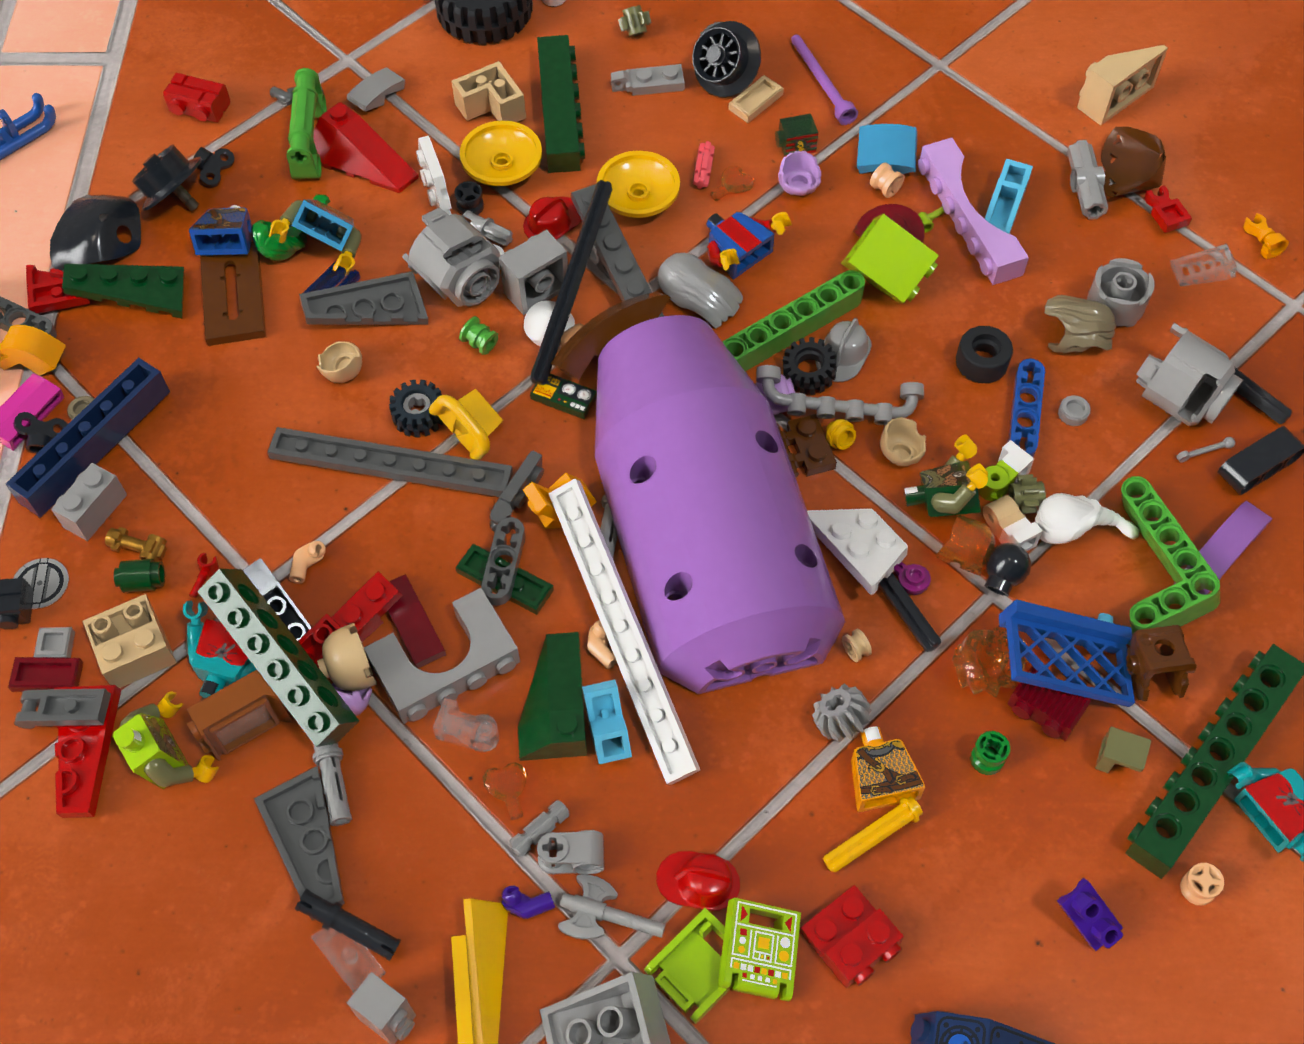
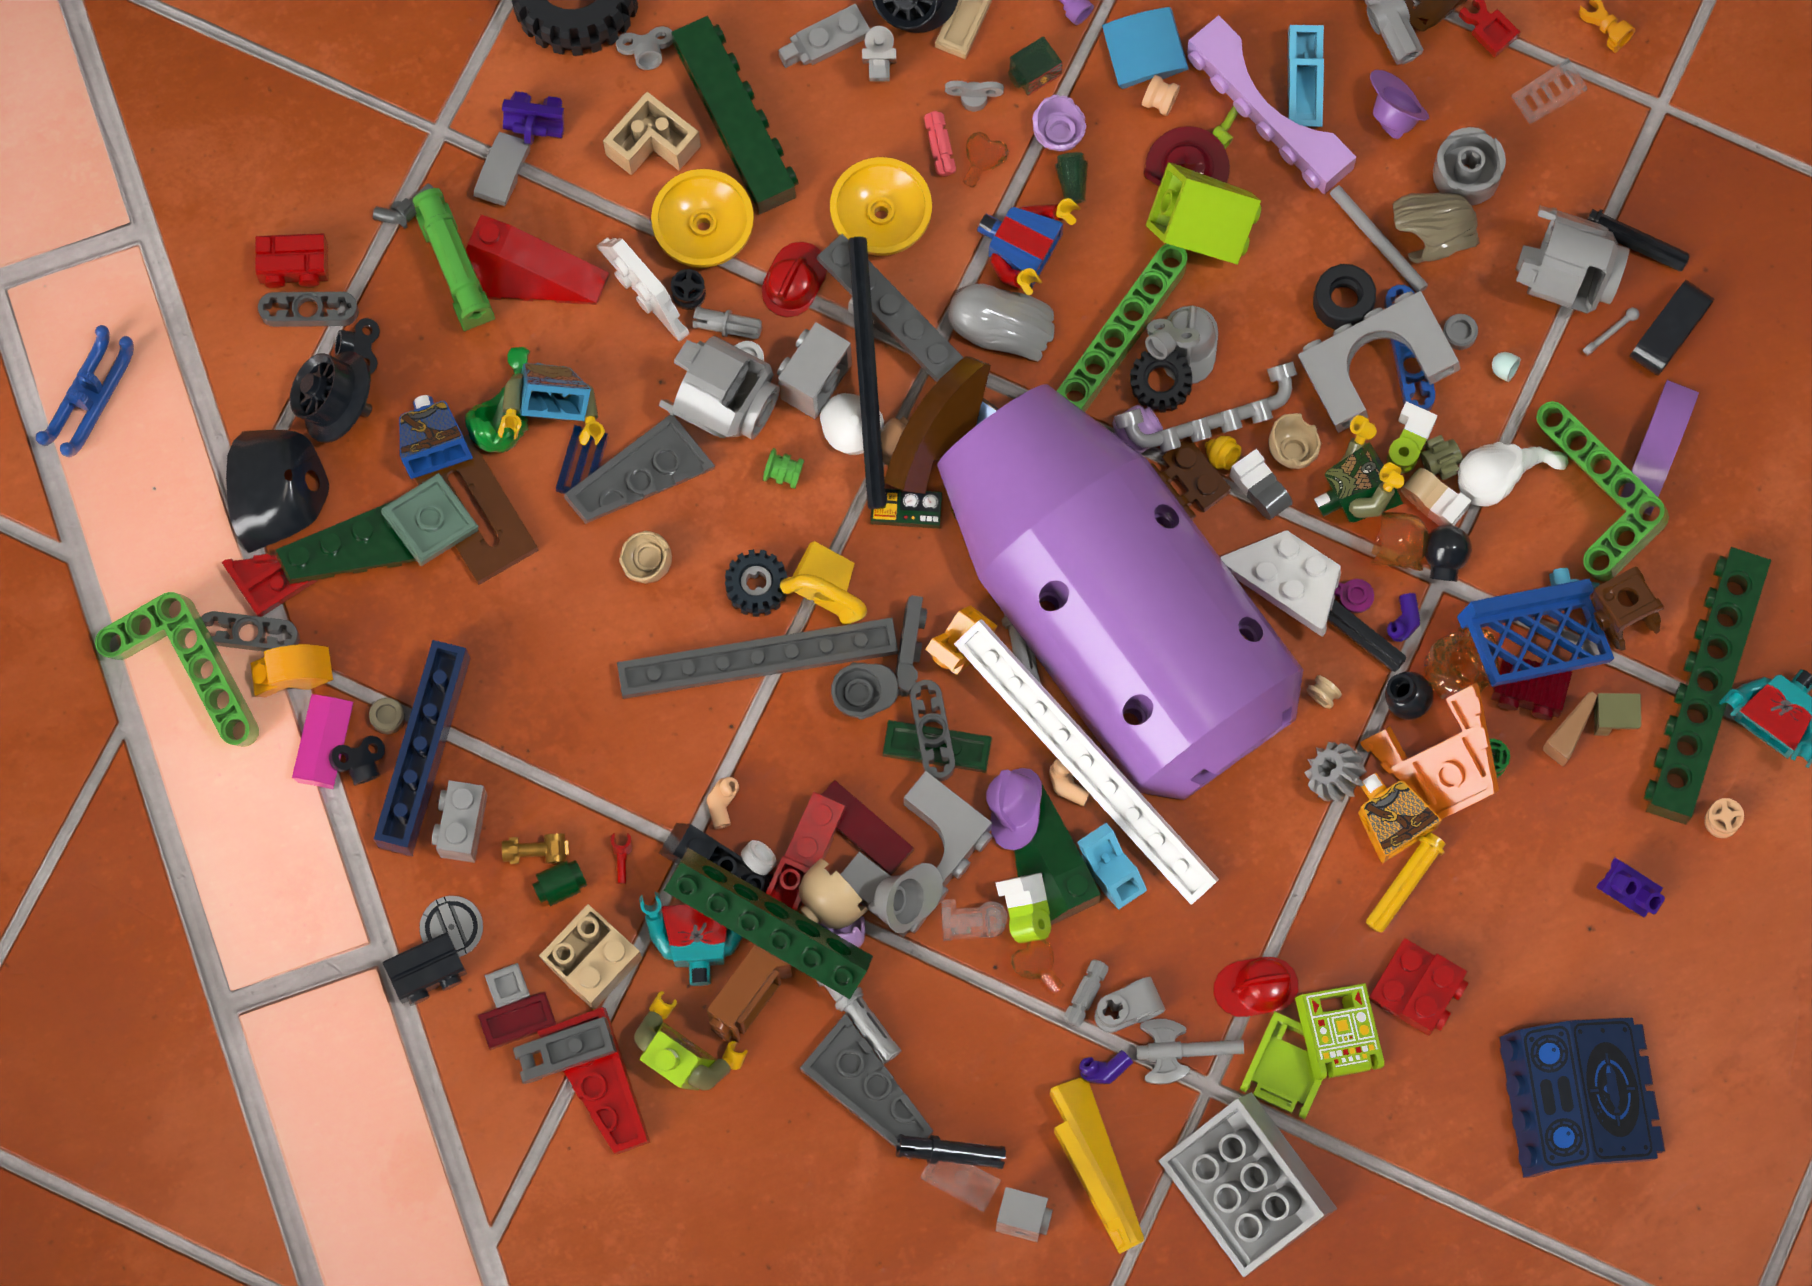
camera: 20 degrees left, 15 degrees up
(191, 283) = (429, 519): none -> sand green tile
(208, 135) = (283, 317): none -> dark grey beam
(309, 611) = (758, 857): none -> white tile
(413, 680) = (908, 897): none -> light grey piece
(415, 65) = (533, 119): none -> dark purple hips
(460, 509) = (864, 689): none -> dark grey hat
(515, 50) = (645, 47): none -> light grey piece
(516, 730) = (1026, 907): none -> leg
(545, 643) = (1015, 807): none -> medium lavender piece
(682, 94) = (879, 53): none -> light grey hips
(743, 137) = (974, 94): none -> light grey piece
(797, 207) = (1072, 175): none -> clear green cone
(819, 330) = (1163, 341): none -> light grey piece
(861, 466) = (1260, 485): none -> leg
(932, 670) = (1409, 695): none -> black piece
(950, 747) = (1452, 771): none -> wing
(953, 614) = (1408, 621): none -> dark purple arm
(1027, 326) = (1378, 239): none -> light grey bar
(1029, 380) = (1406, 321): none -> light grey arch
(1066, 757) = (1565, 738): none -> medium nougat slope
(1071, 238) = (1395, 104): none -> medium lavender piece
(1106, 445) = (1505, 365): none -> light aqua hinge

